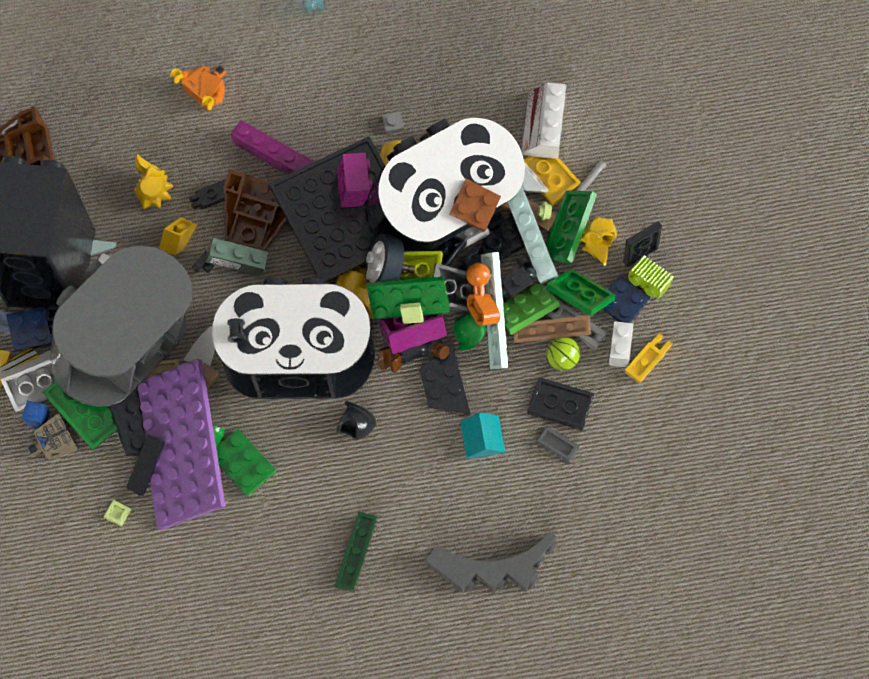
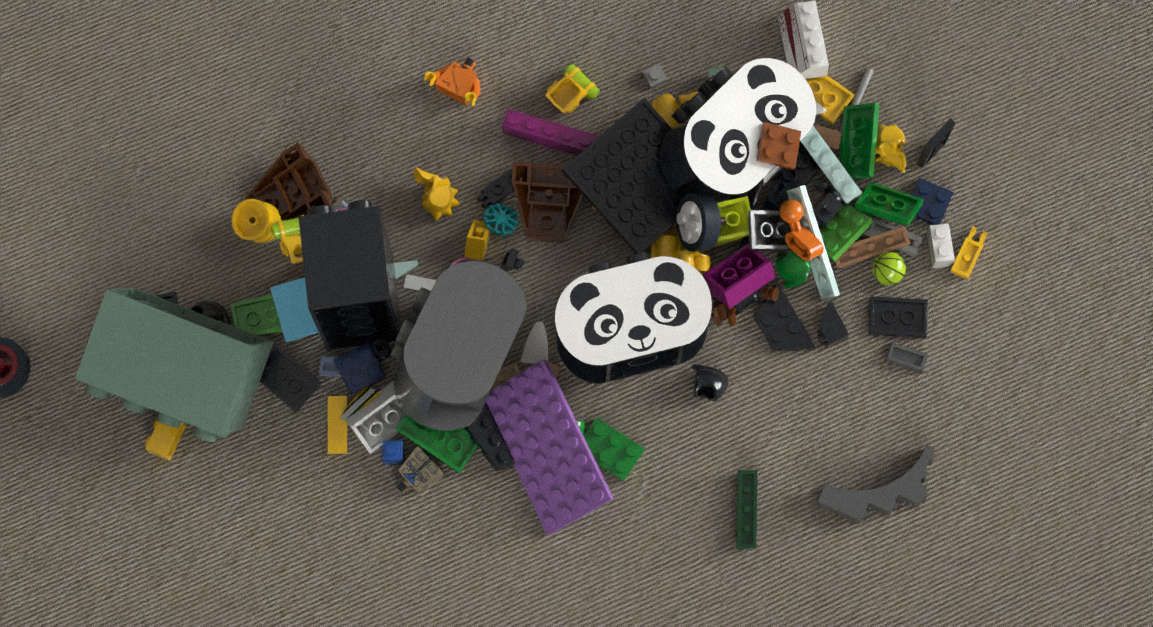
camera: 20 degrees left, 5 degrees up
(117, 513) = (502, 529): yellowish green tile -> none
(145, 465) = (518, 475): black tile -> none
(204, 222) = (500, 219): none -> teal wheel
(236, 257) = (545, 248): sand green brick -> none
(236, 330) = (582, 325): black bush -> none
(308, 116) = (571, 90): none -> yellow piece
(353, 179) = (647, 146): magenta brick -> none
(389, 295) = (732, 250): green plate -> none
(411, 313) = (740, 265): yellowish green tile -> none
(482, 435) = (832, 367): teal slope -> none
(490, 397) = (831, 328): none -> black slope
(545, 211) = (830, 131): yellowish green plate -> none
(650, 277) = (949, 173): lime brick -> none

